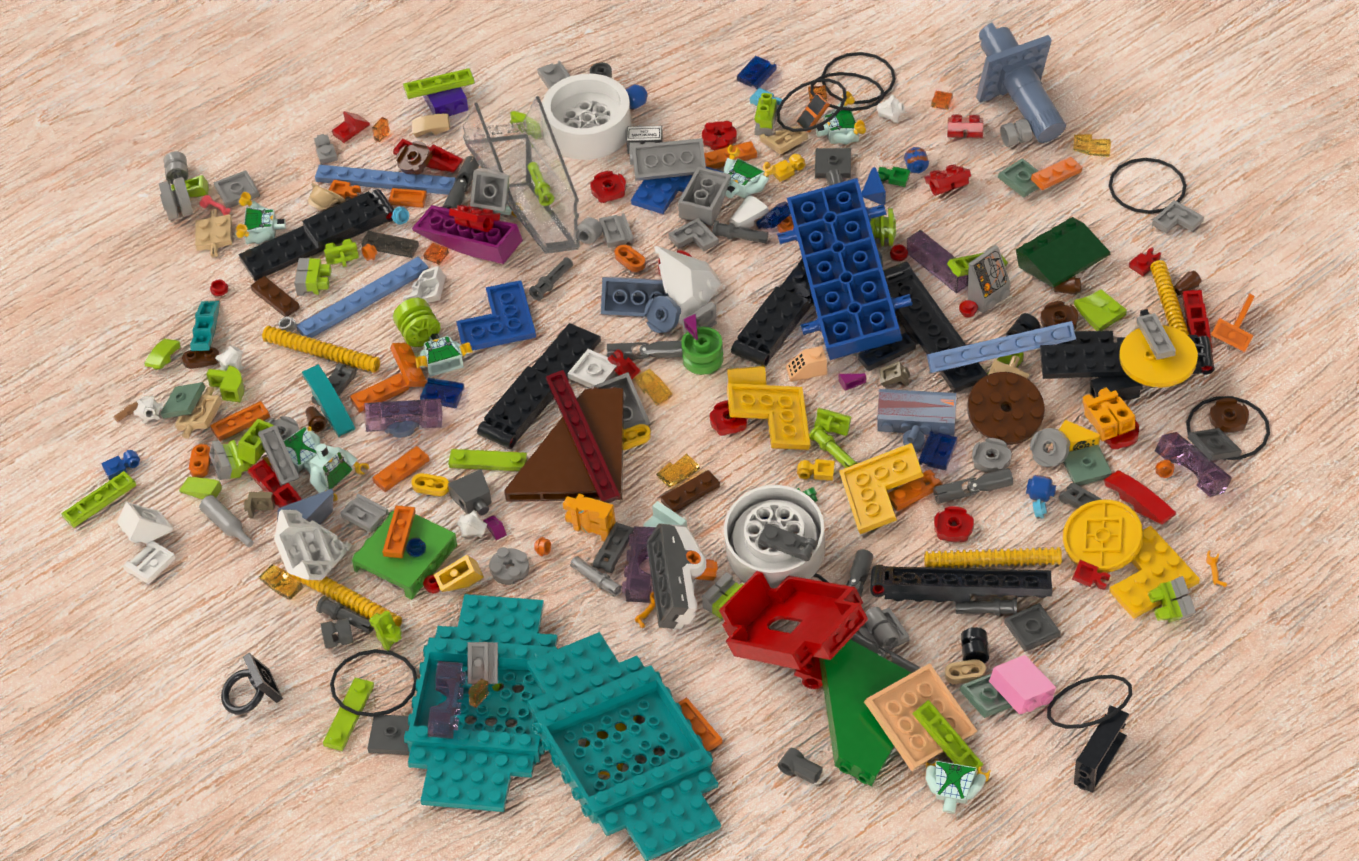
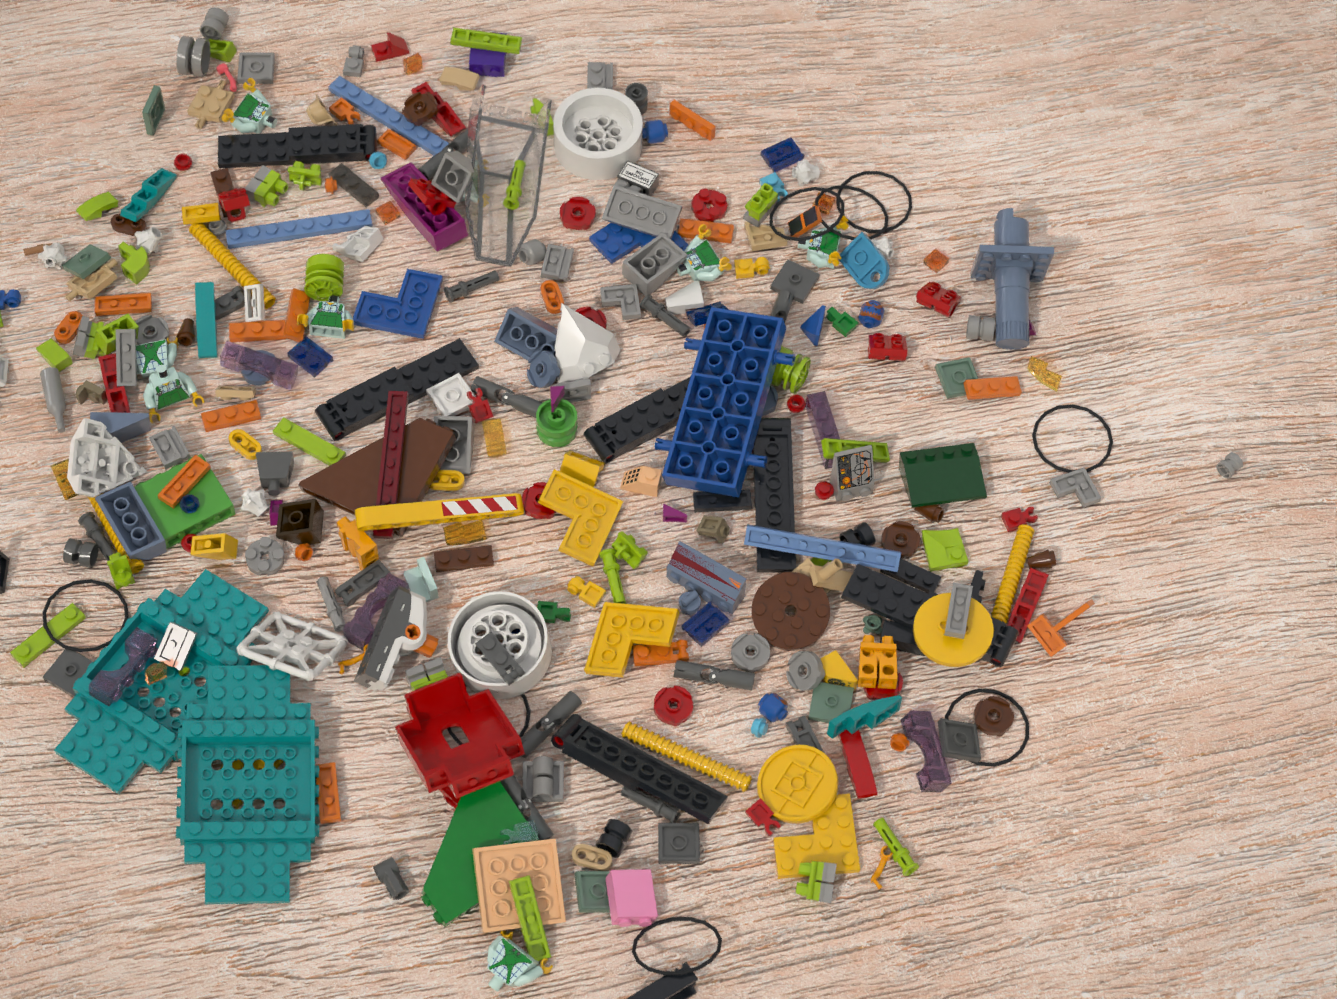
camera: 20 degrees right, 10 degrees up
(166, 255) = (153, 110): none -> sand green plate
(266, 318) = (200, 213): none -> yellow panel
(291, 294) = (233, 200): none -> red piece
(371, 381) = (257, 303): none -> white tile
(372, 584) = (132, 522): none -> sand blue slope
(386, 450) = (228, 392): none -> tan plate
(525, 522) = (300, 522): none -> dark brown slope
(588, 622) = (292, 646): none -> white plate
(649, 458) = (439, 511): none -> yellow beam
(660, 76) = (692, 120): none -> orange plate
(786, 76) = (805, 172): none -> white rock
(884, 122) = (864, 261): none -> dark azure plate
(896, 671) = (522, 833): none -> clear light blue plate
(1022, 364) = (830, 576): none -> tan piece
(1079, 390) = (872, 619): none -> sand green plate
(1125, 457) = (867, 714): none -> teal slope
(1225, 552) = (900, 854): none -> lime pin
(1290, 150) = (1229, 465): none -> light grey wheel

